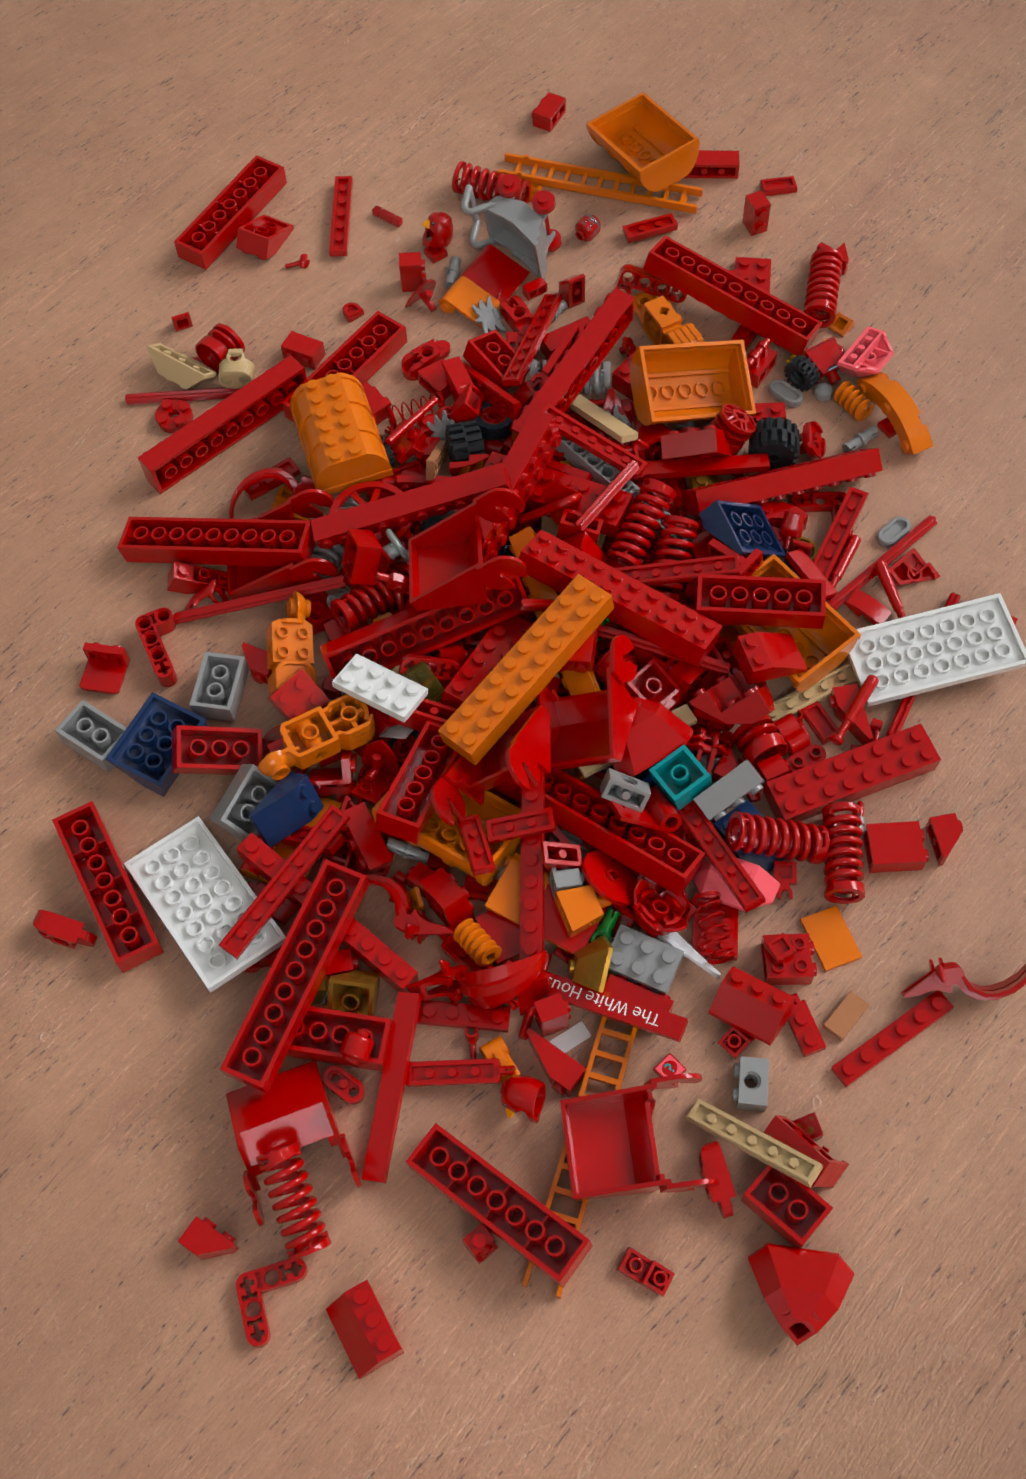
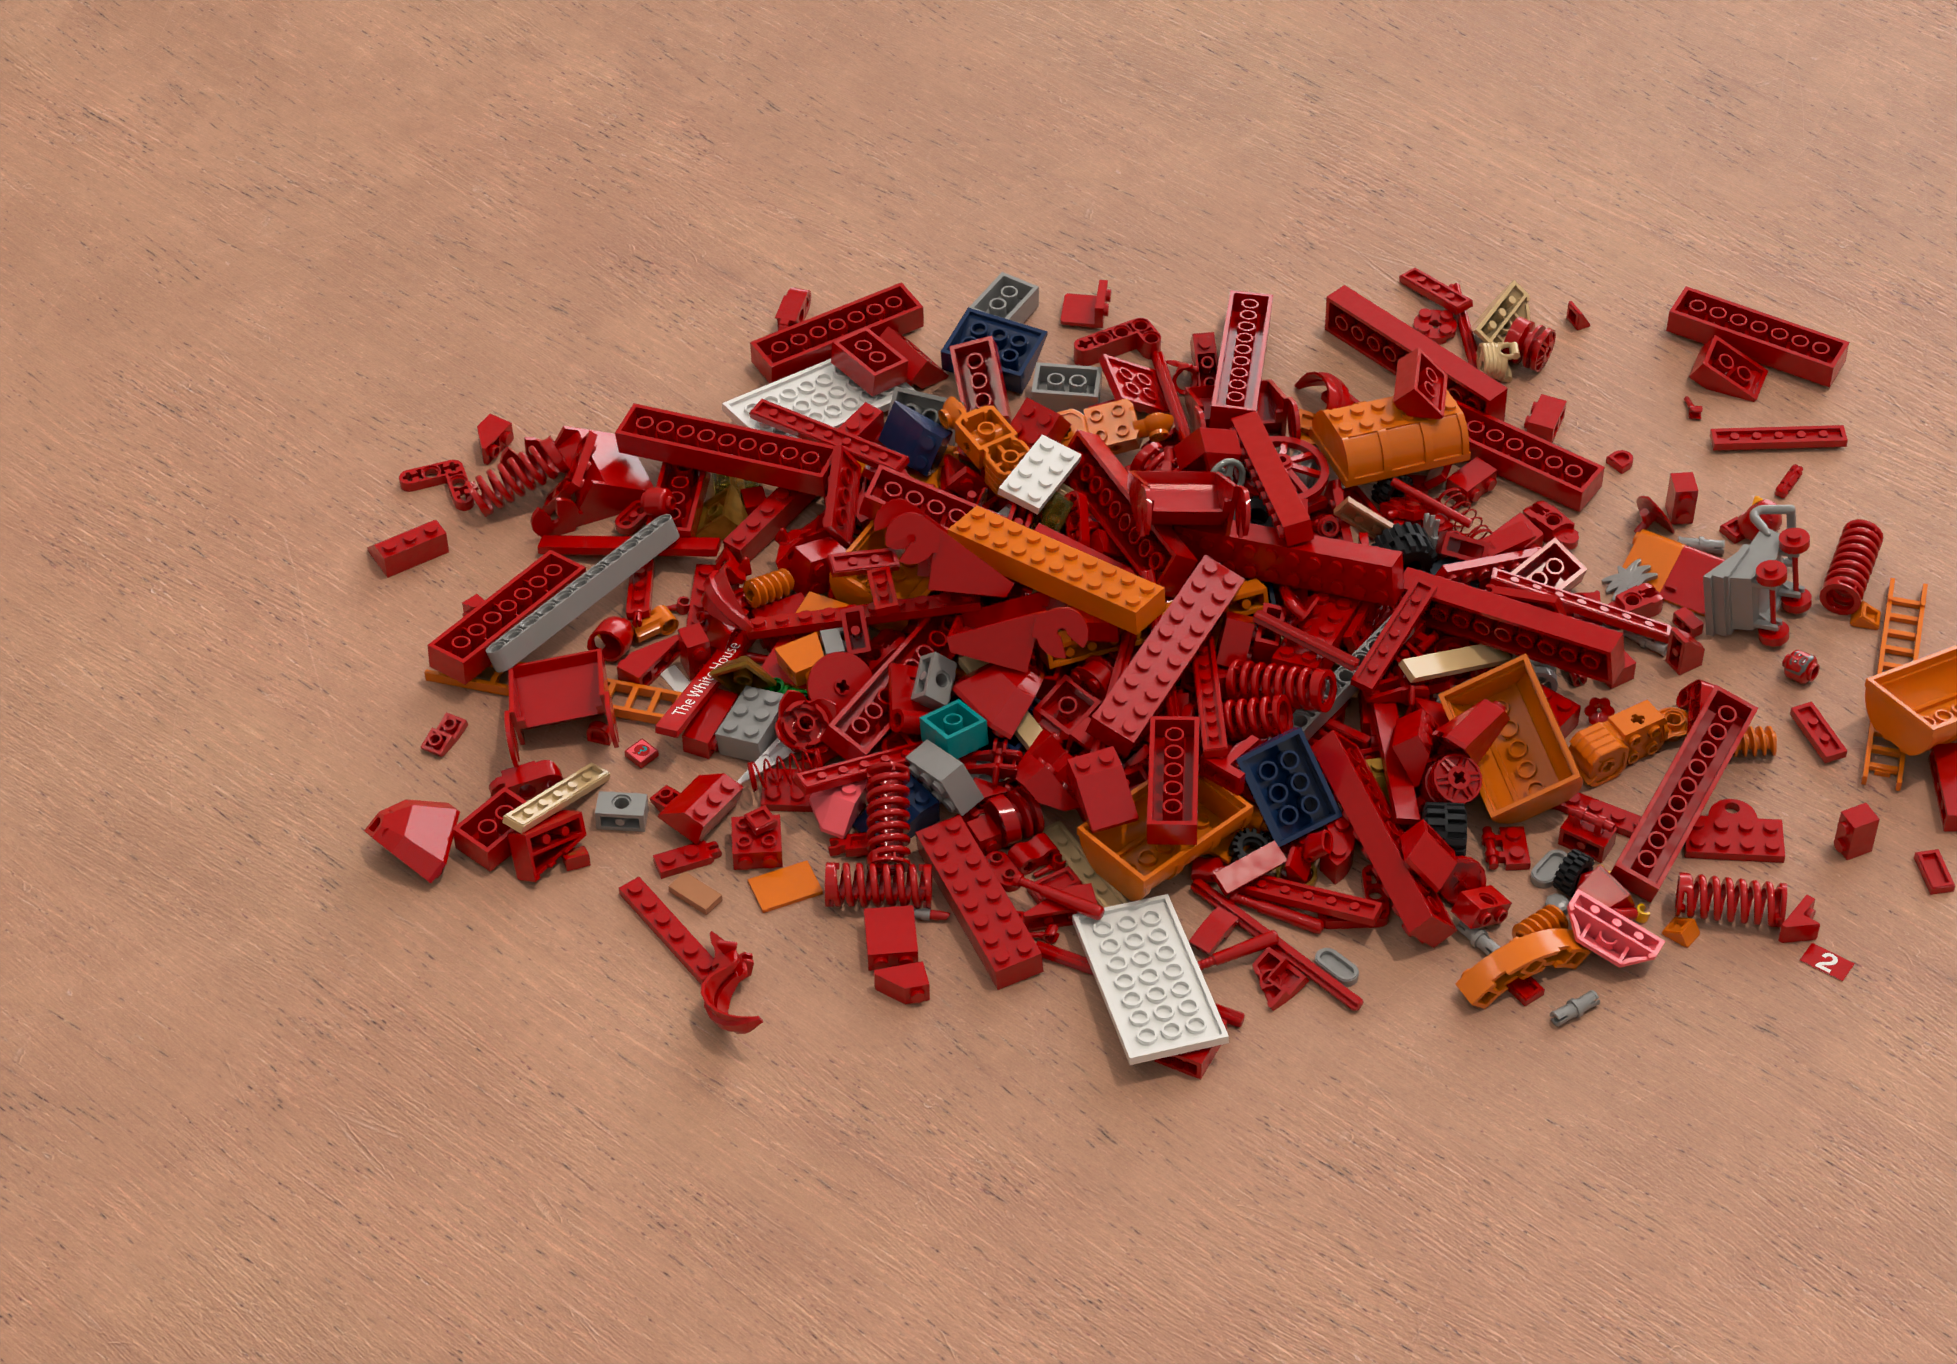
camera: 85 degrees right, 15 degrees down
(134, 409) = (1436, 291): none -> red tile
(154, 822) = (921, 368): none -> red slope
(166, 849) = (869, 361): none -> red brick
(228, 630) = (1135, 383): none -> red plate
(316, 393) = (1420, 386): none -> red slope
(316, 1132) = (574, 480): none -> red plate
(387, 868) = (842, 496): none -> red plate
(489, 1124) = (582, 593): none -> light grey beam
(698, 398) = (1474, 729): none -> red slope
(814, 445) = (1427, 855): none -> red slope
(841, 430) = (1481, 907): none -> red brick
(862, 251) = (1827, 962): none -> red sticker
(915, 382) = (1574, 1008): none -> light grey pin

